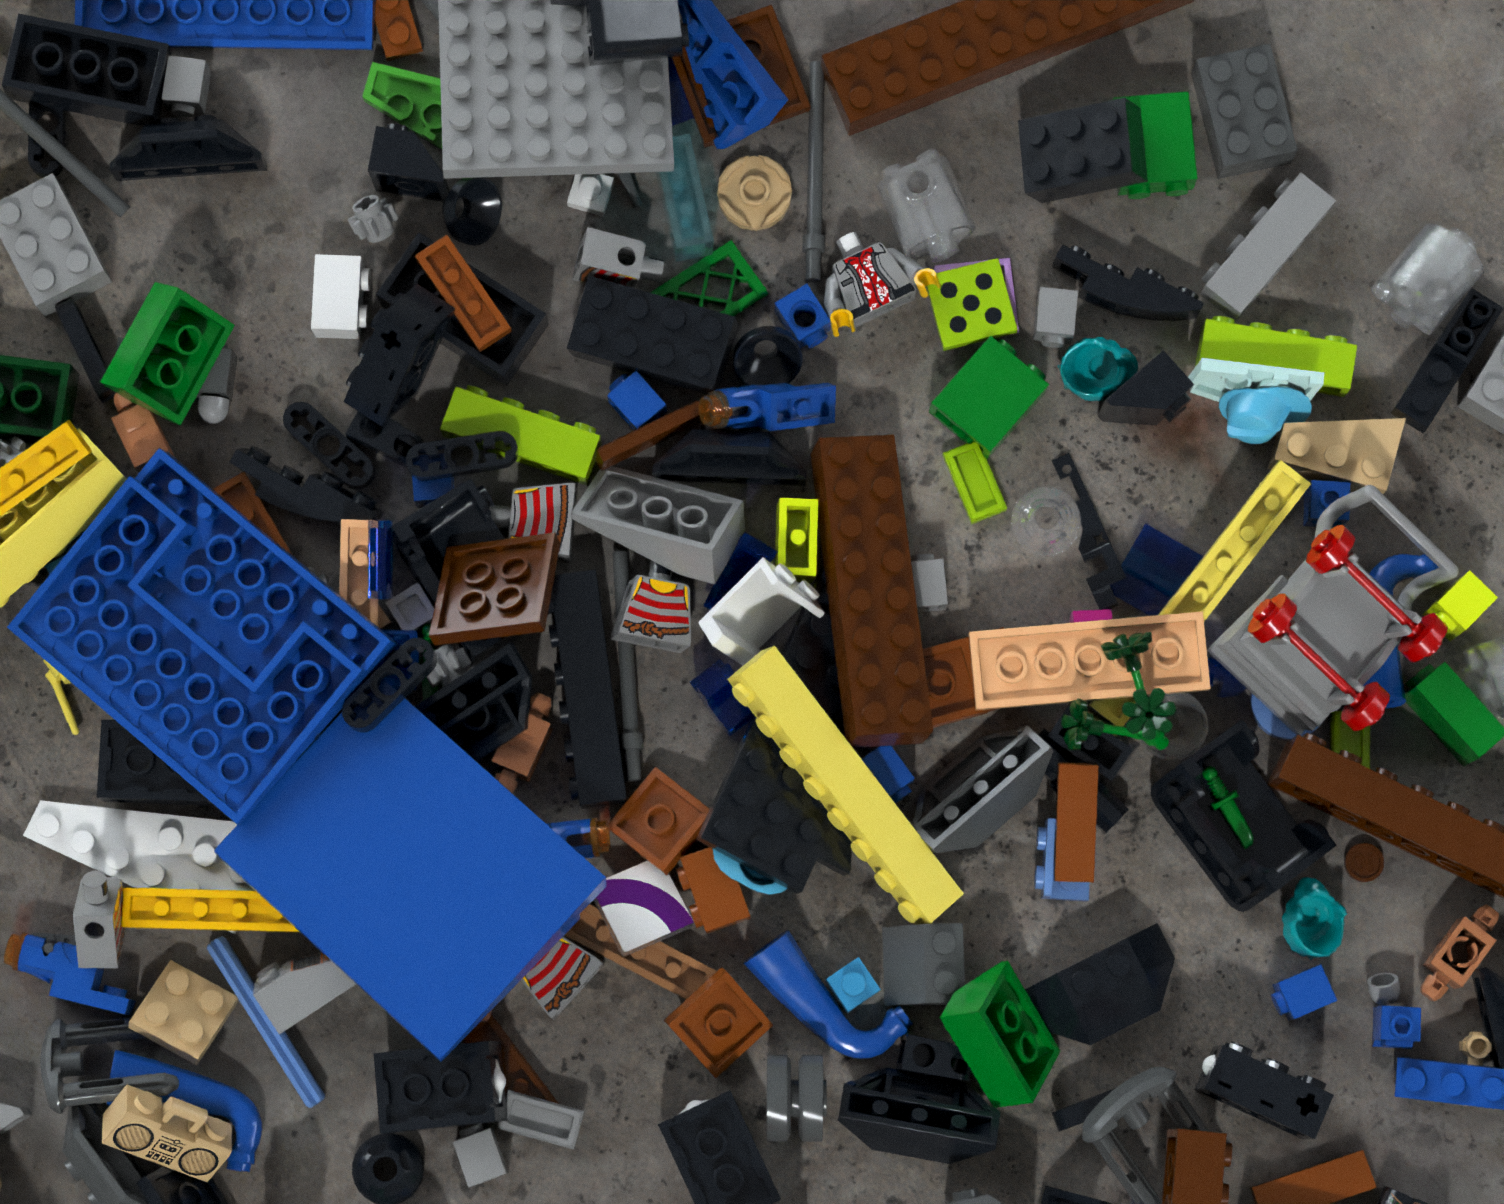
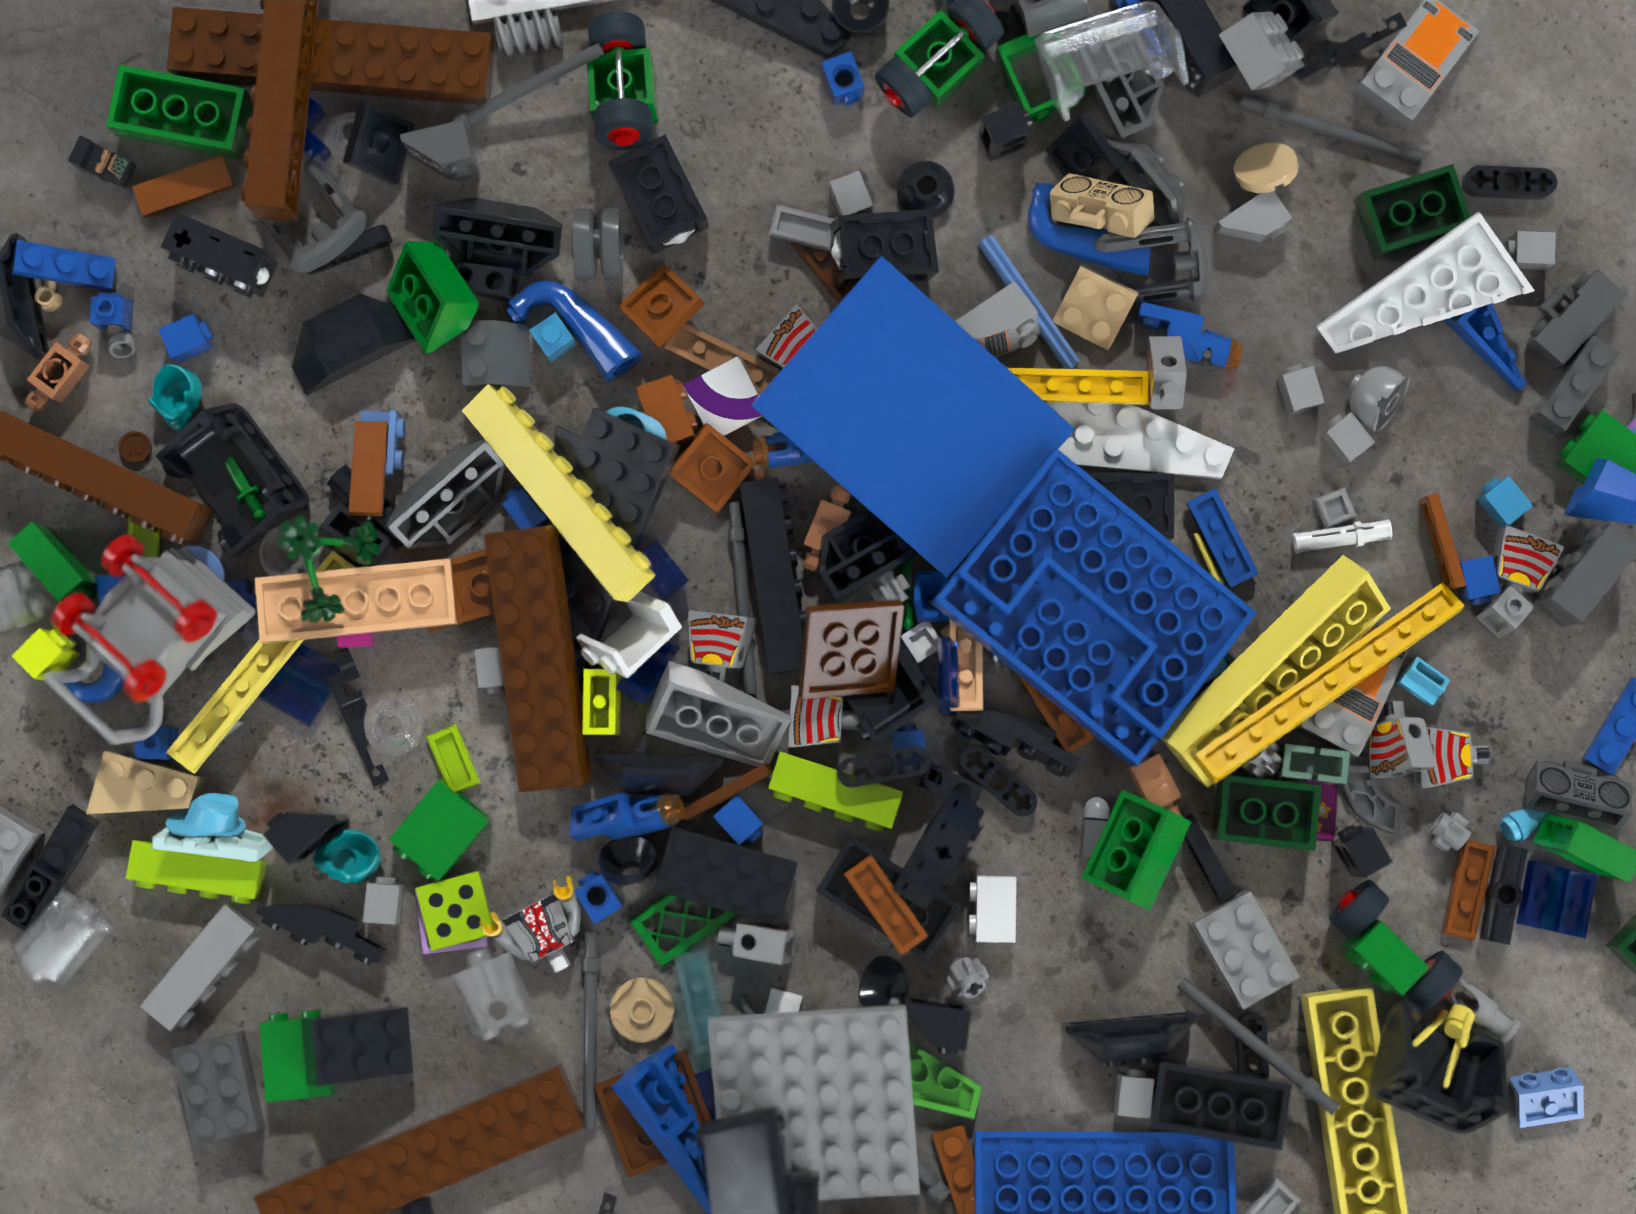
camera: 175 degrees right, 5 degrees up
(44, 726) = (1222, 538): none -> blue plate
(361, 698) = (958, 554): black beam -> none

